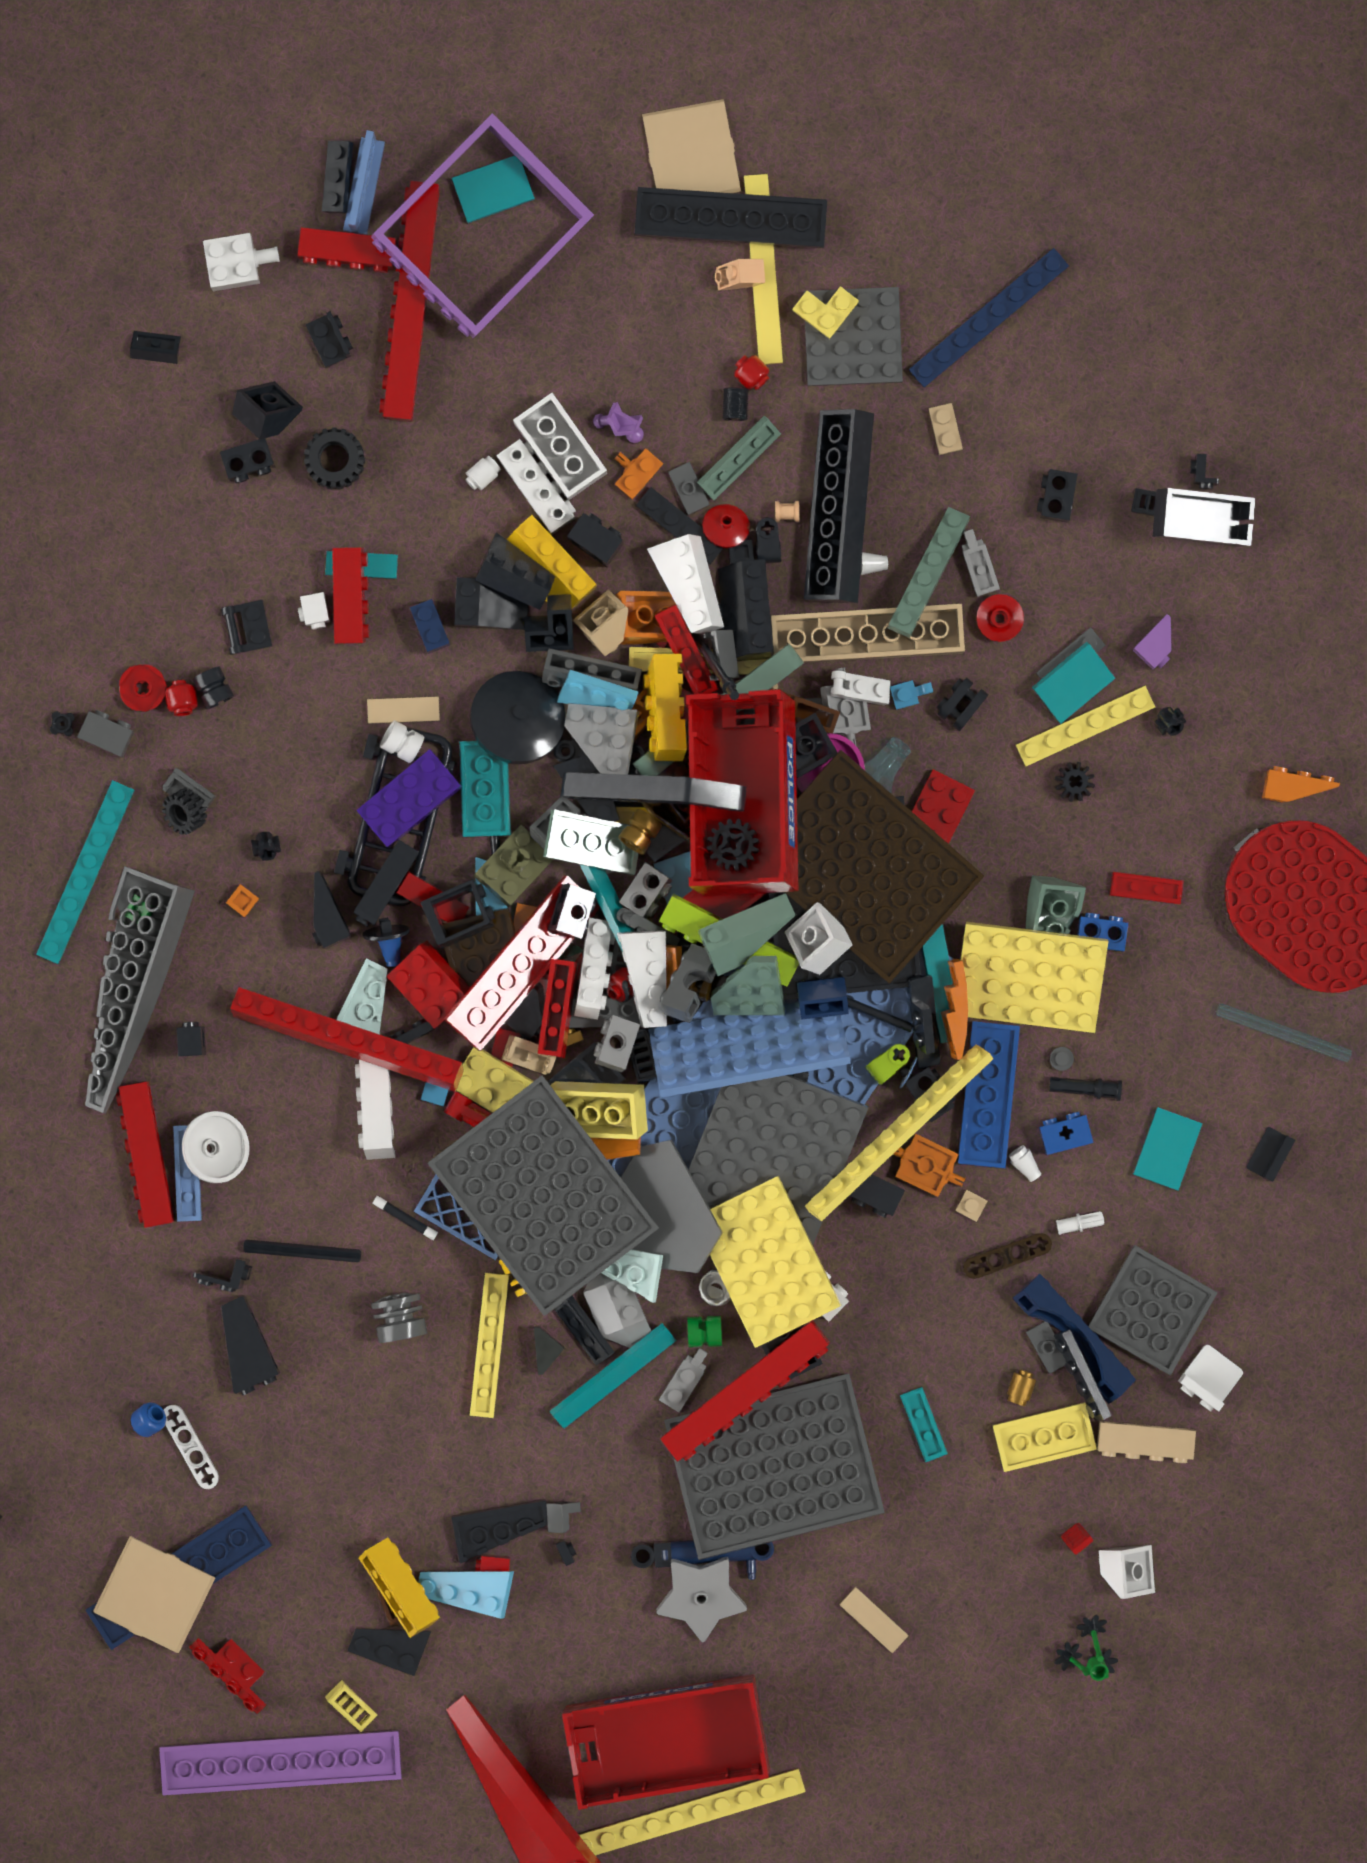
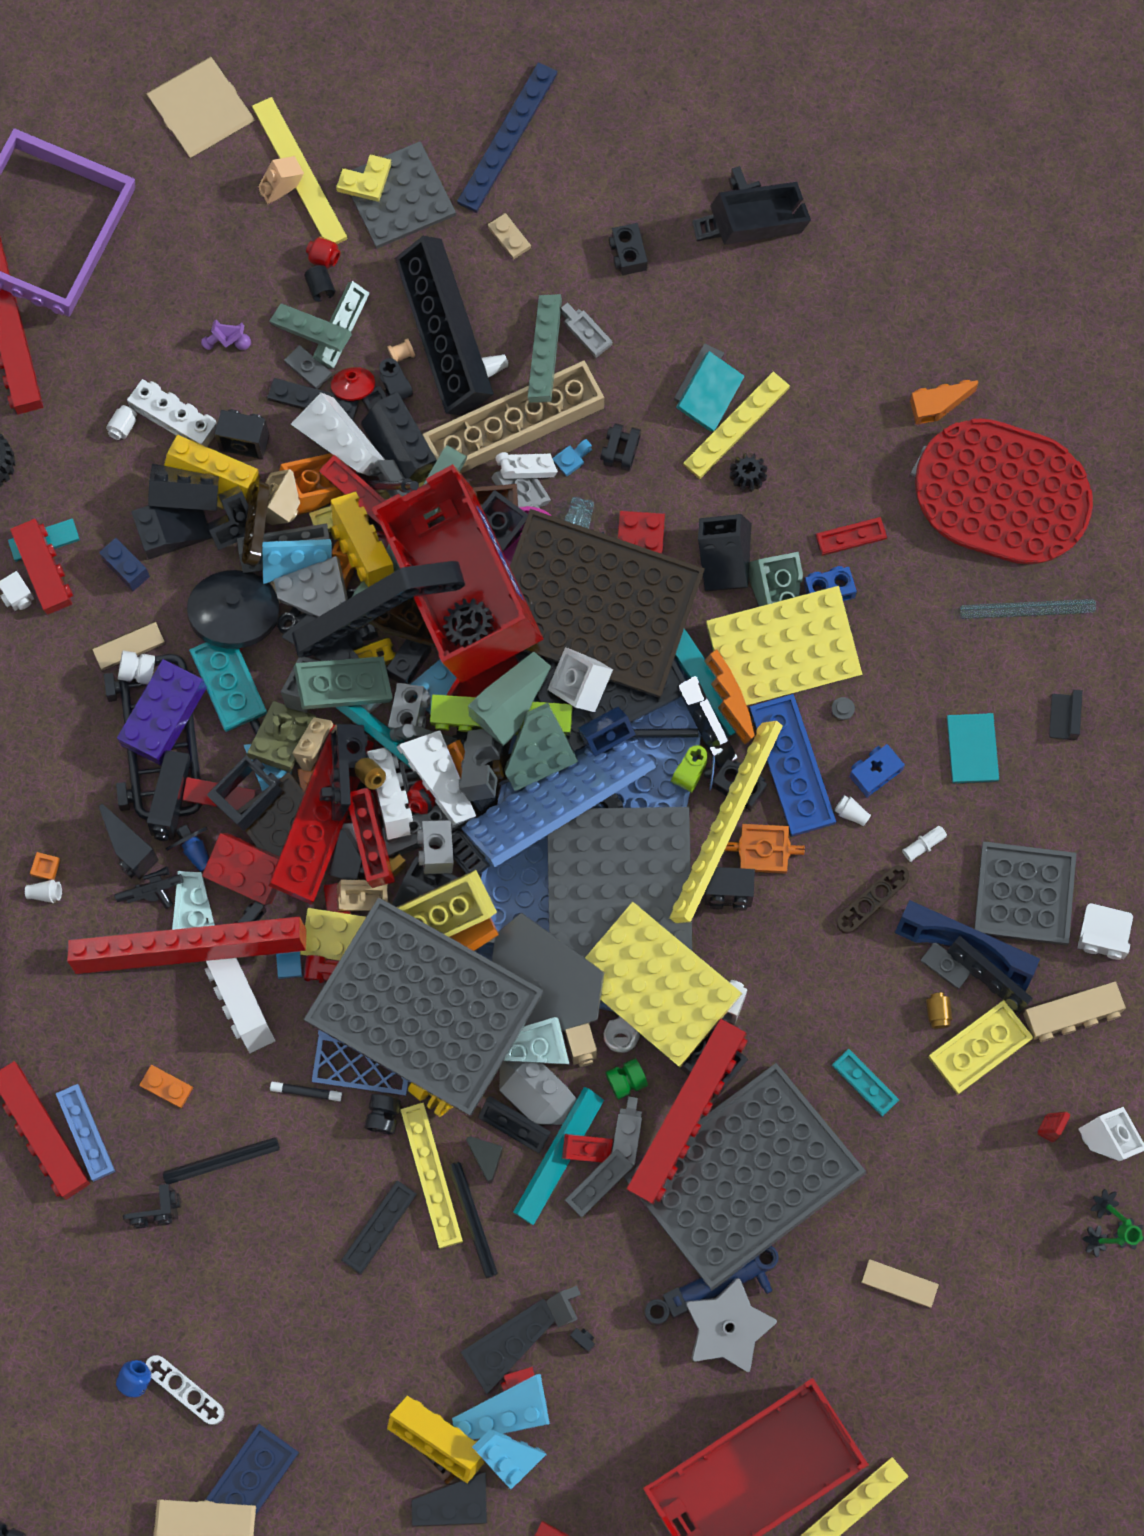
camera: 15 degrees left, 15 degrees down
(191, 1039) = (42, 1006): black brick -> none
(228, 1146) = (109, 1086): white dish -> none
(233, 925) = (45, 891): none -> white cone
(246, 1347) = (204, 1274): black slope -> none
(266, 846) = (47, 803): black gear -> none
(277, 1159) = (166, 1086): none -> orange plate
(335, 966) = (153, 890): none -> black piece
(399, 1317) = (333, 1177): dark grey wheel -> none
(423, 1372) = (379, 1227): none -> black tile
(455, 1630) = (507, 1457): none -> medium azure wing
(466, 1271) = (382, 1114): none -> black wheel
(493, 189) = (41, 197): teal tile -> none
(511, 1399) = (473, 1220): none -> black axle
(541, 886) = (312, 742): none -> tan bracket
(546, 953) = (339, 790): none -> black hinge
(560, 446) = (180, 372): white brick -> none
(571, 647) = (255, 523): none -> dark brown beam
(582, 948) = (370, 773): none -> pearl gold brick
(636, 472) = (256, 371): orange plate -> none
(639, 1417) = (599, 1183): none -> dark grey plate
(641, 830) = (381, 655): pearl gold wheel -> none
(641, 1381) = (586, 1148): none -> red plate
(675, 1286) = (581, 1045): none -> tan brick
(707, 451) = (310, 327): none -> sand green plate
(730, 217) = (253, 138): black plate -> none
(971, 1205) = (820, 868): tan plate -> none
(1005, 606) = (623, 355): red dish -> none
(1015, 858) = (725, 551): none -> black slope
(1095, 1088) = (885, 720): black pin -> none
(1156, 644) = (767, 334): medium lavender slope -> none
(1170, 721) = (808, 390): black gear -> none

